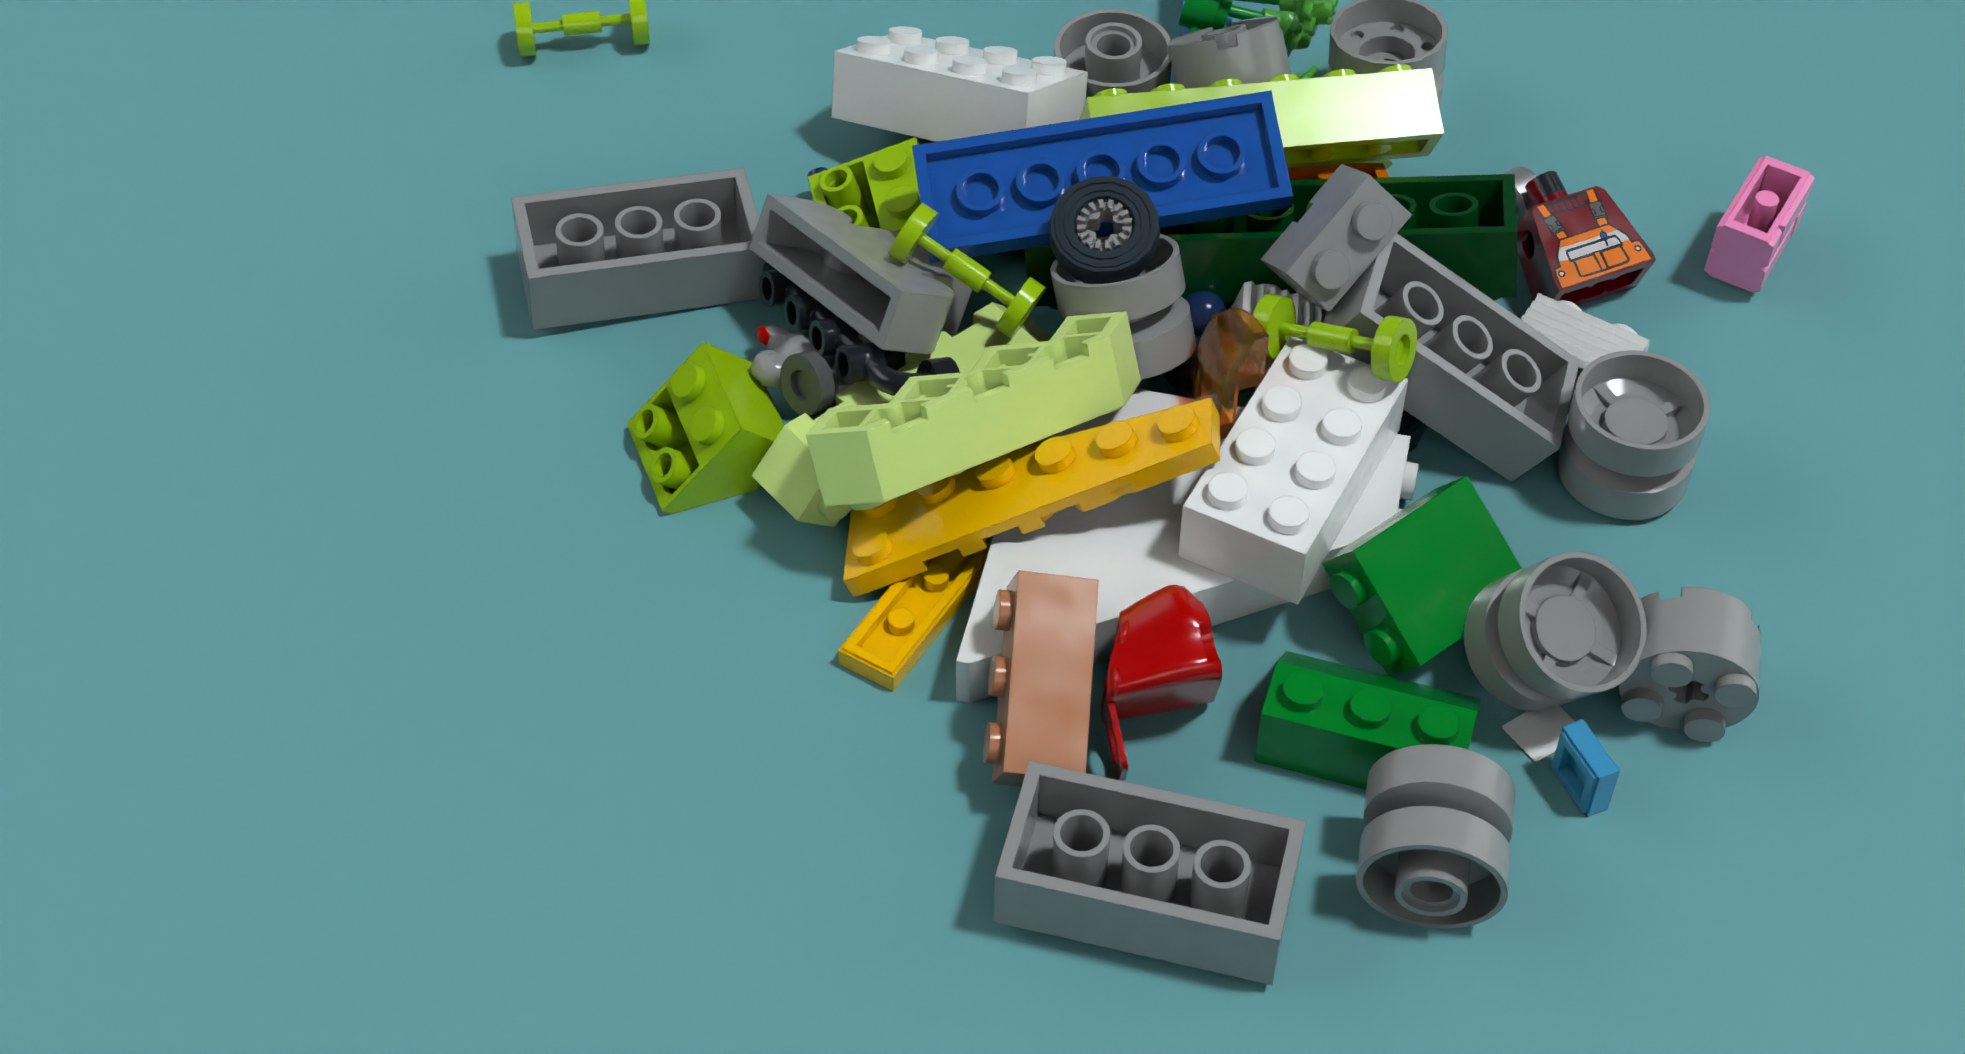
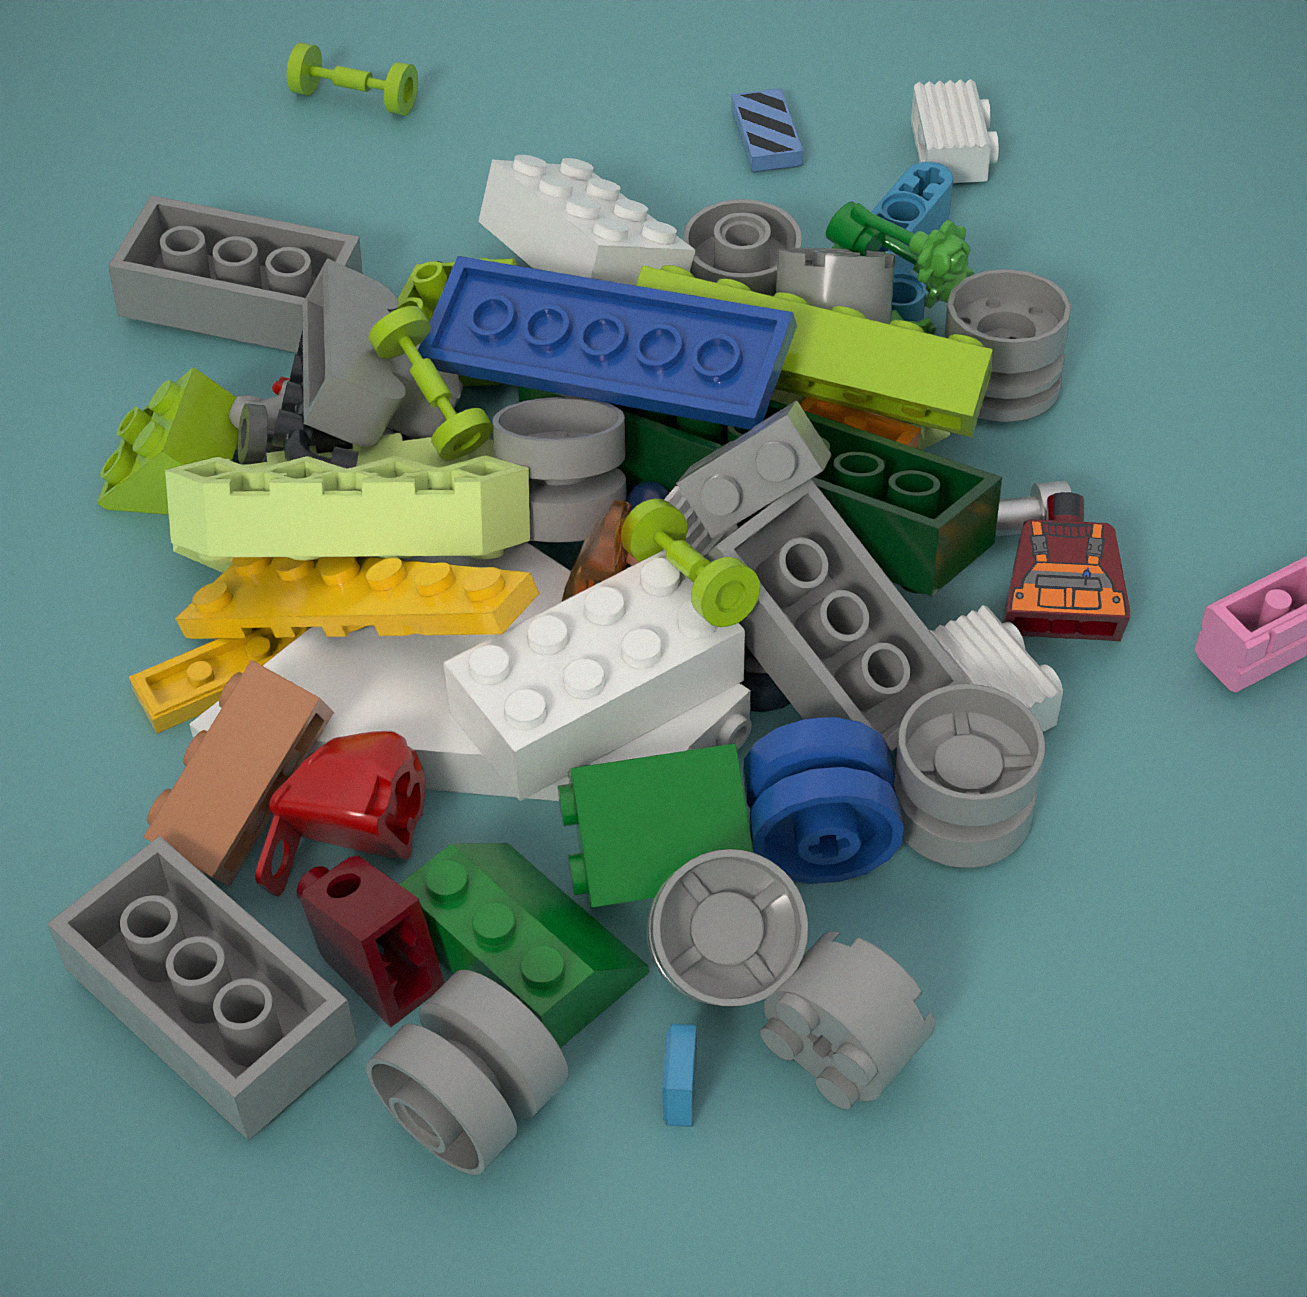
camera: 30 degrees right, 0 degrees up
(1082, 211) = (562, 362): black bush -> none
(1253, 759) = (363, 906): none -> dark red torso
(1538, 731) = (708, 1018): white sticker -> none
(1548, 492) = (823, 799): none -> blue wheel

